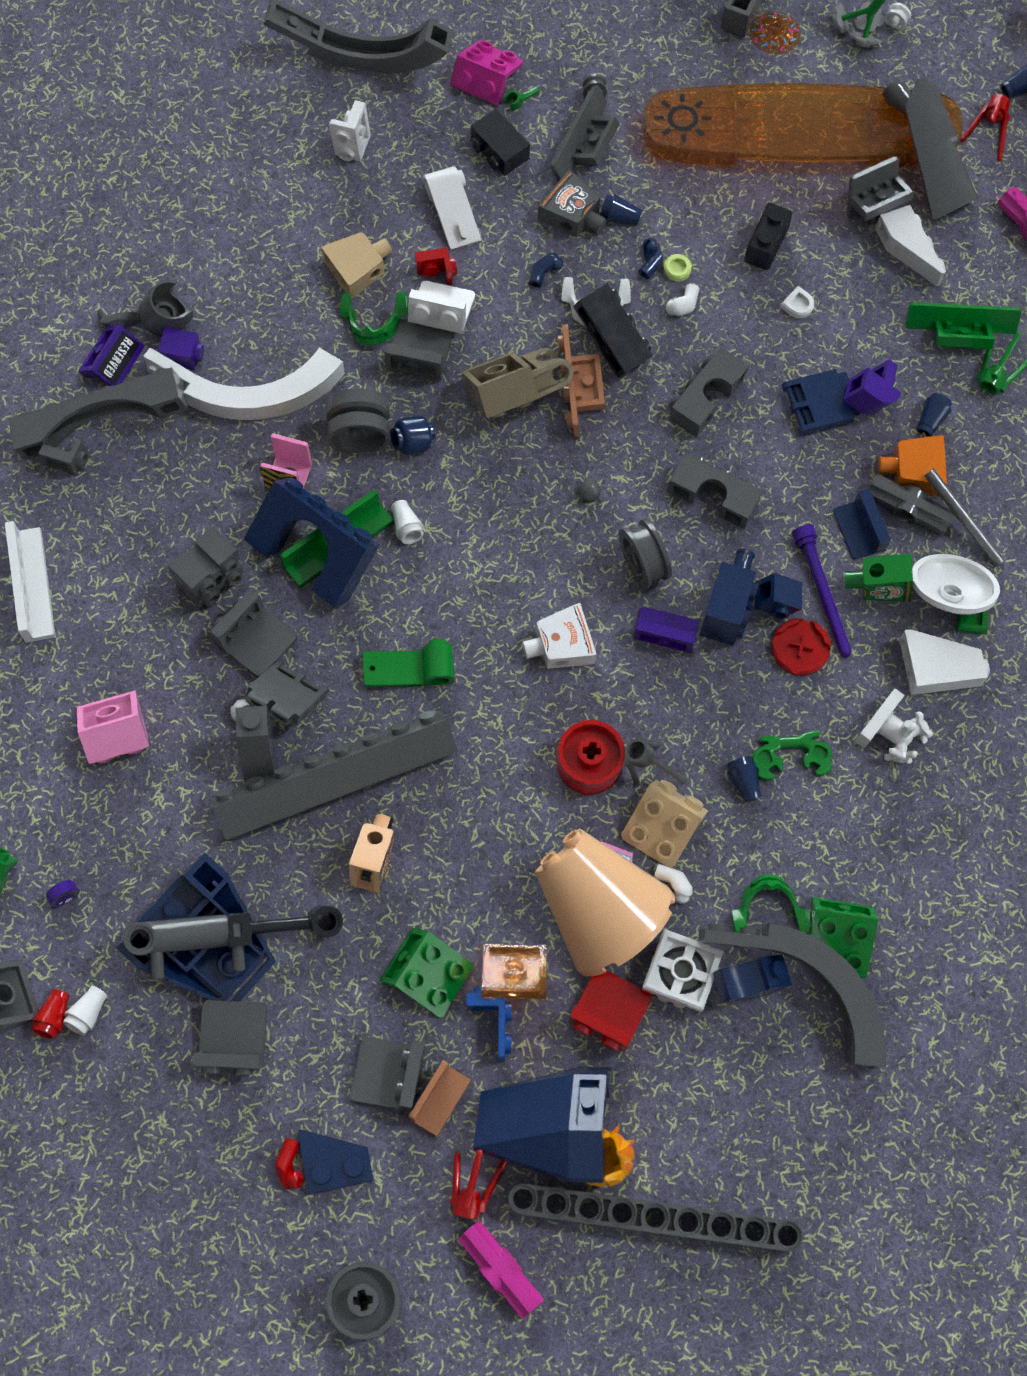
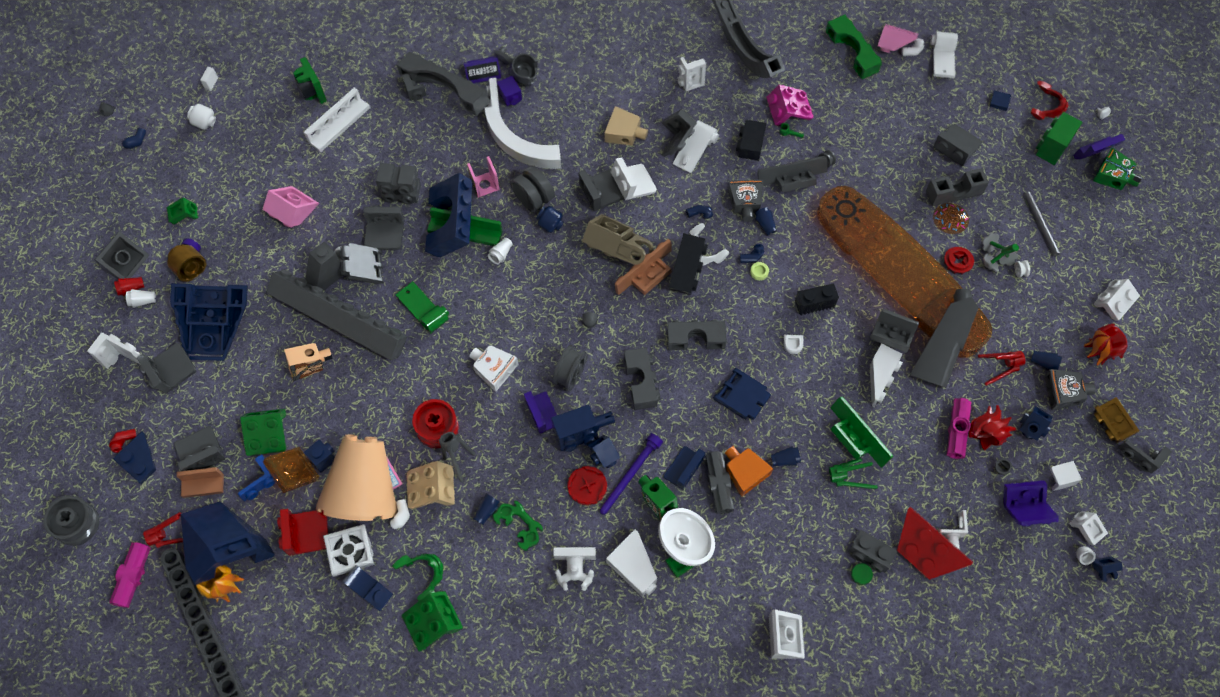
camera: 55 degrees right, 5 degrees down
(85, 914) = (186, 261): none -> pearl gold piece
(137, 1090) = (107, 348): none -> white bracket
(219, 931) = (215, 324): dark grey piece -> none
(368, 335) = (596, 167): green helmet -> none
(426, 204) = (682, 127): none -> dark grey bracket
(435, 261) = (655, 161): red bracket -> none
(522, 922) = (320, 455): none -> dark blue brick
(684, 304) = (740, 289): white arm -> none
(843, 60) = (959, 252): none -> red gear
(856, 1006) = (401, 624): dark grey arch -> none
(872, 388) = (767, 416): dark purple brick -> none
(964, 517) = (733, 515): flat silver bar -> none

